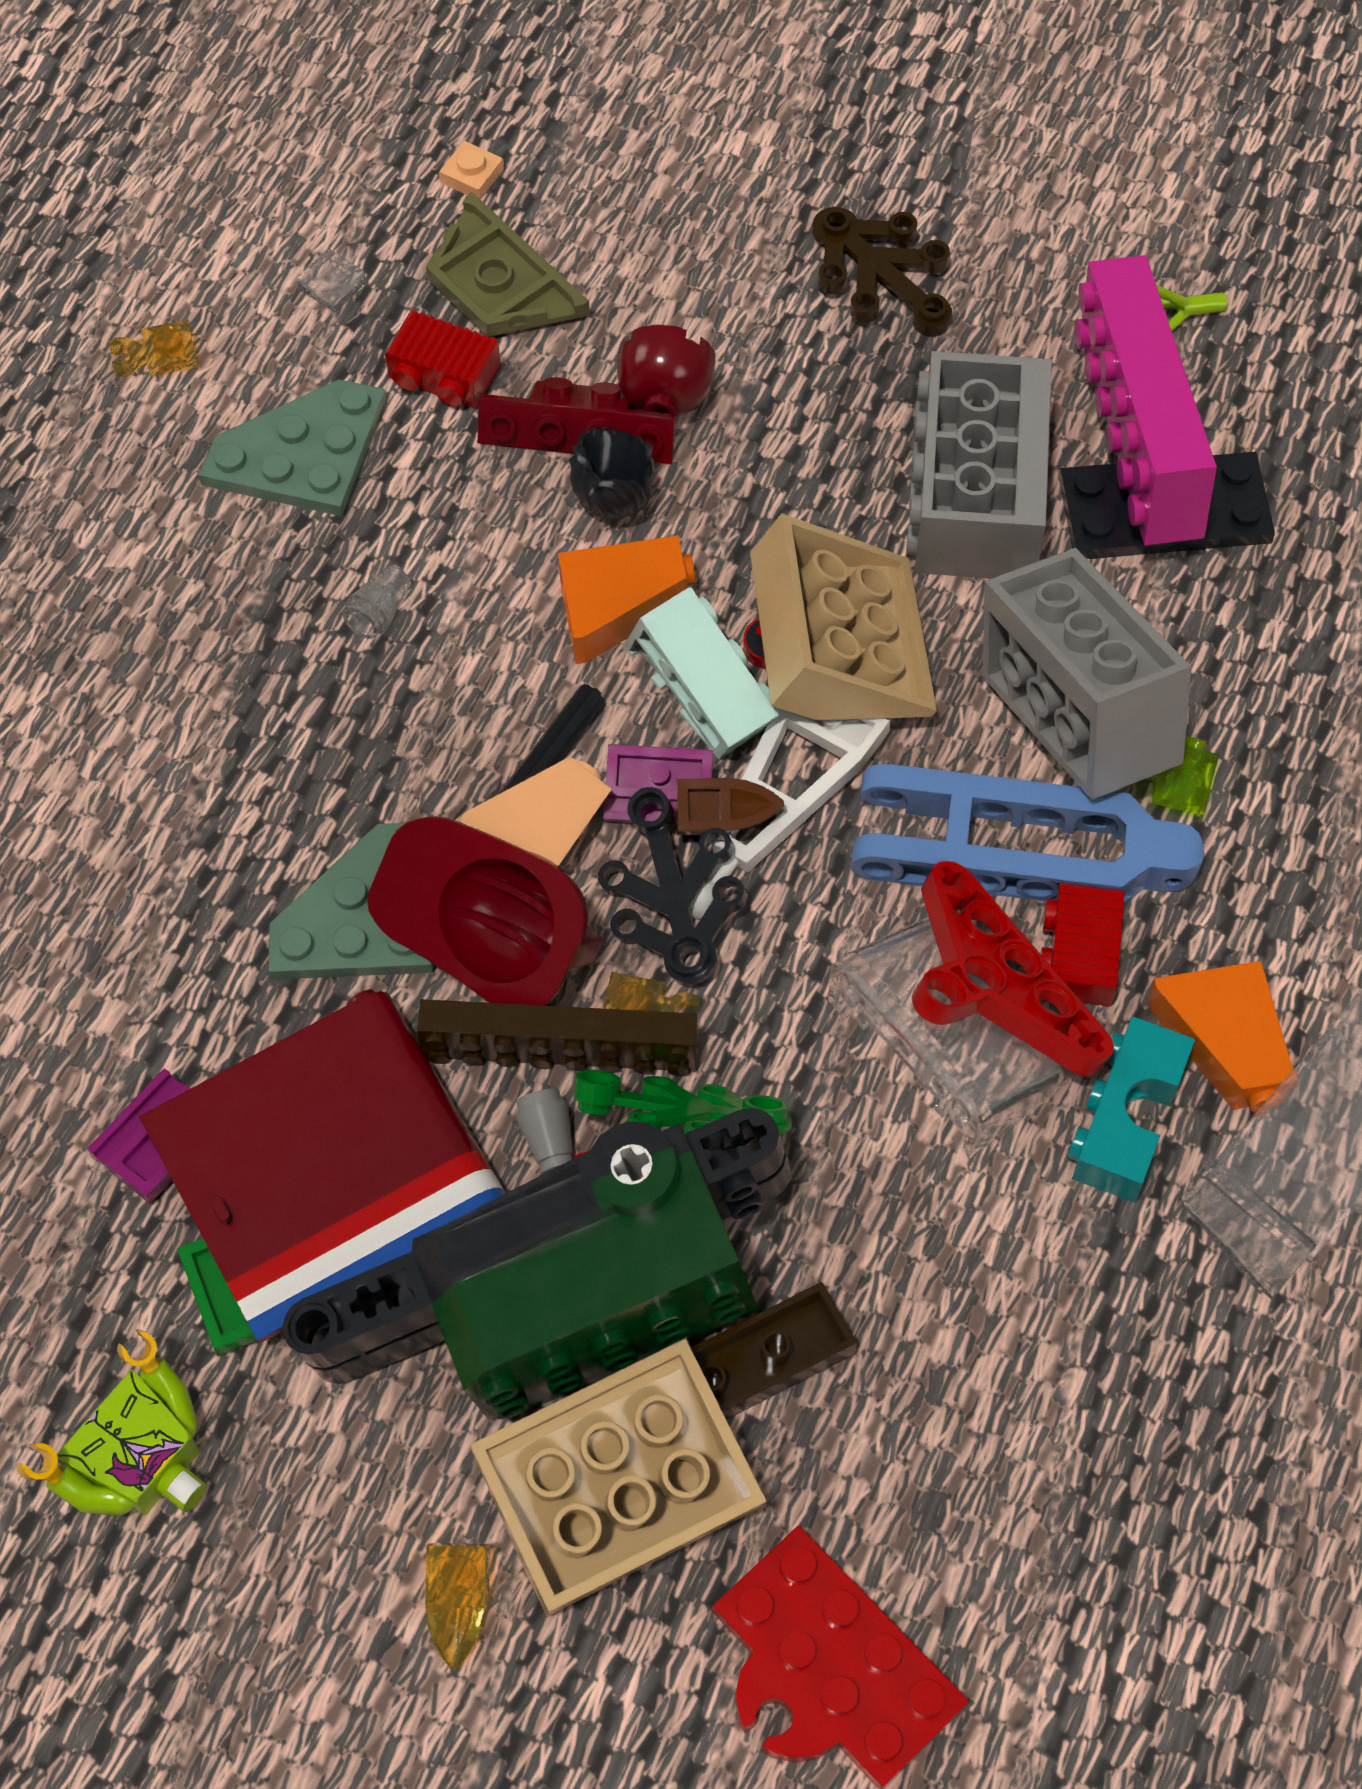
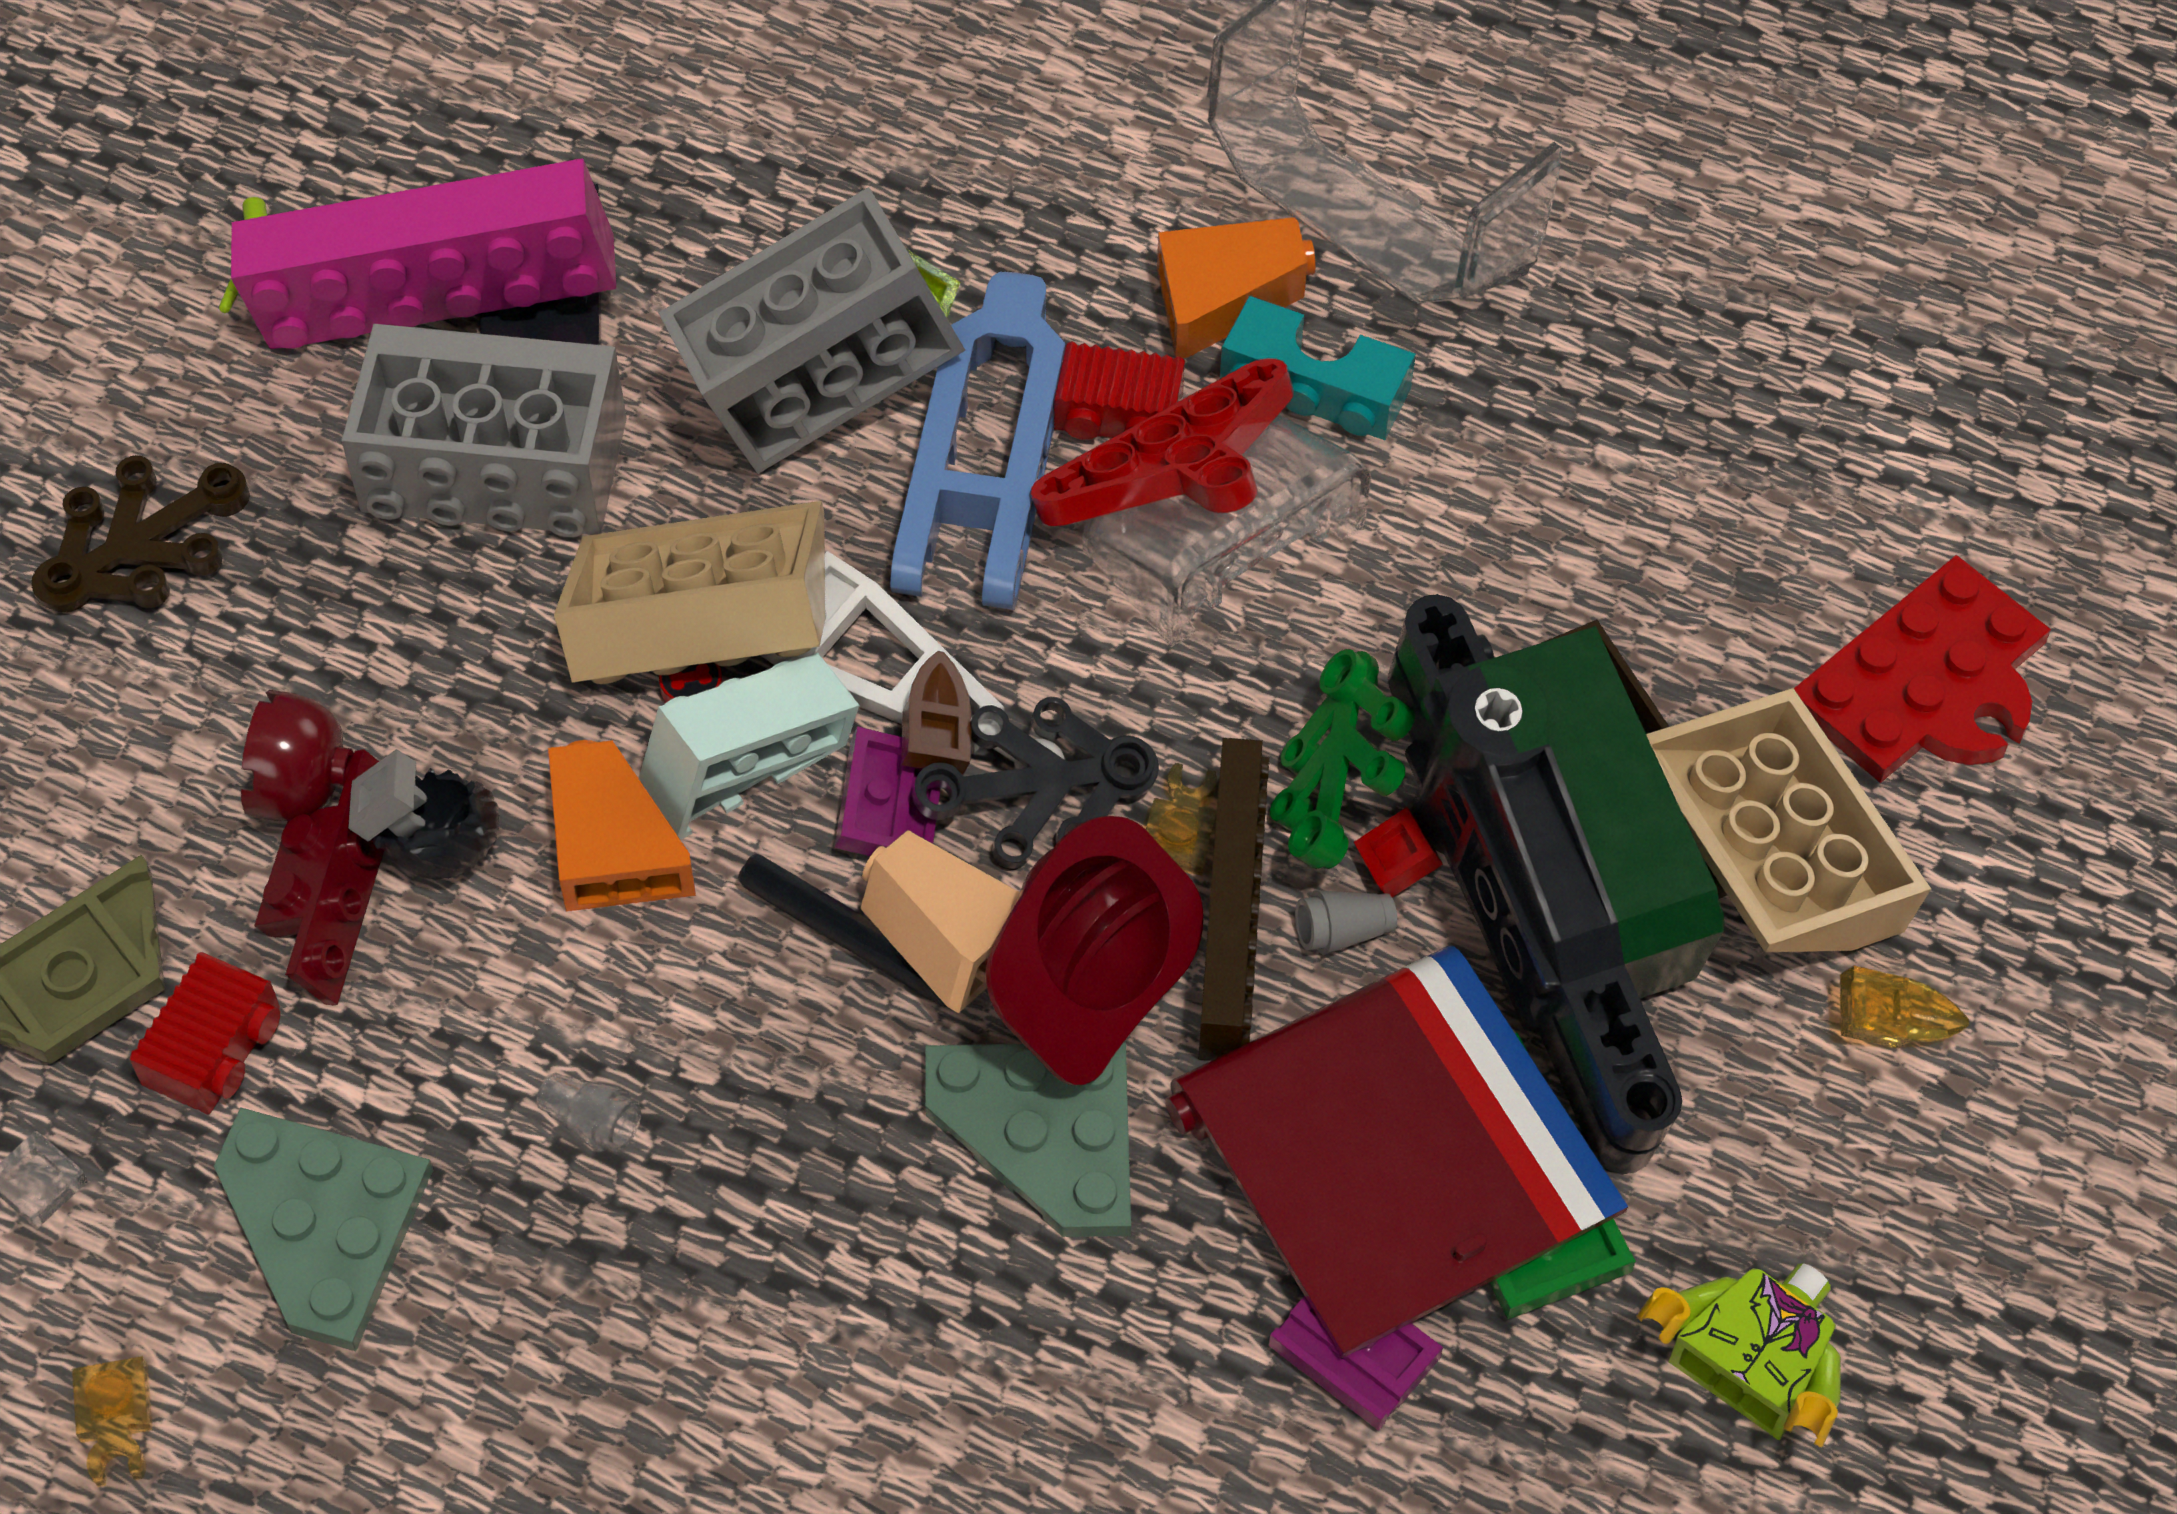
camera: 90 degrees left, 5 degrees down
(617, 425) = (386, 798): none -> light grey tile

